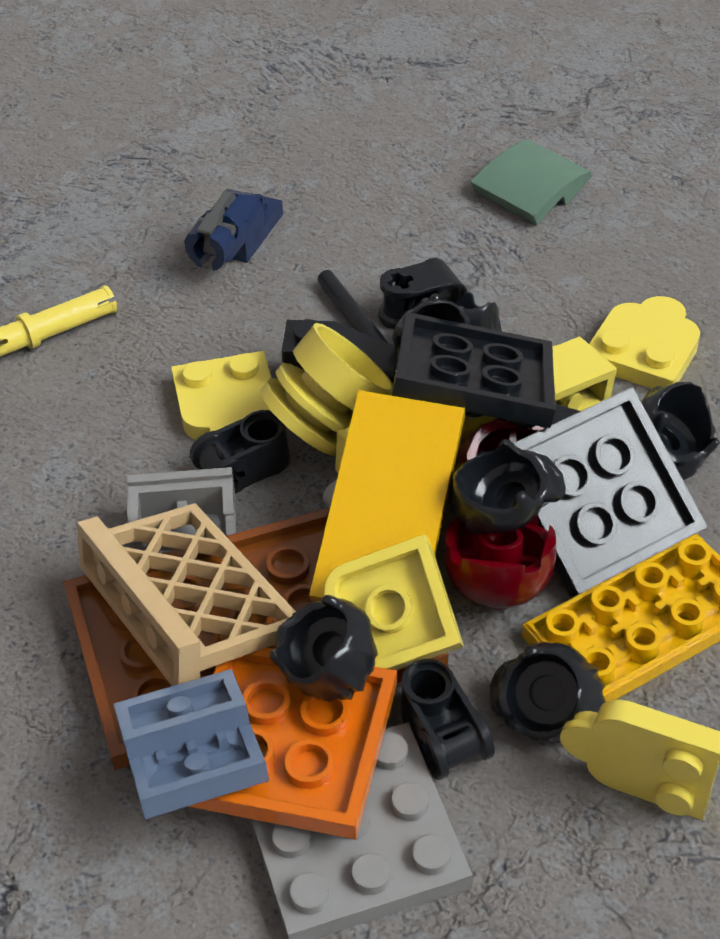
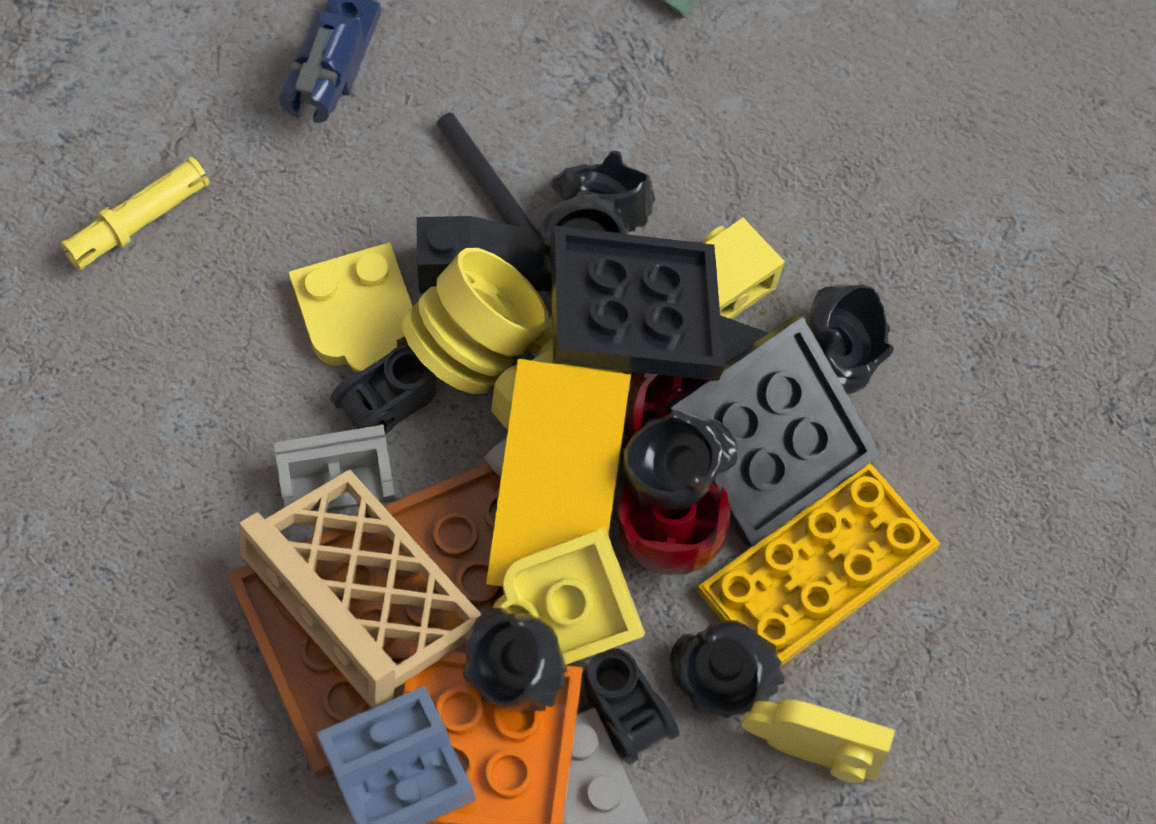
camera: 10 degrees left, 20 degrees up
(413, 284) = (558, 143): black piece -> none
(648, 341) = (815, 200): light yellow plate -> none

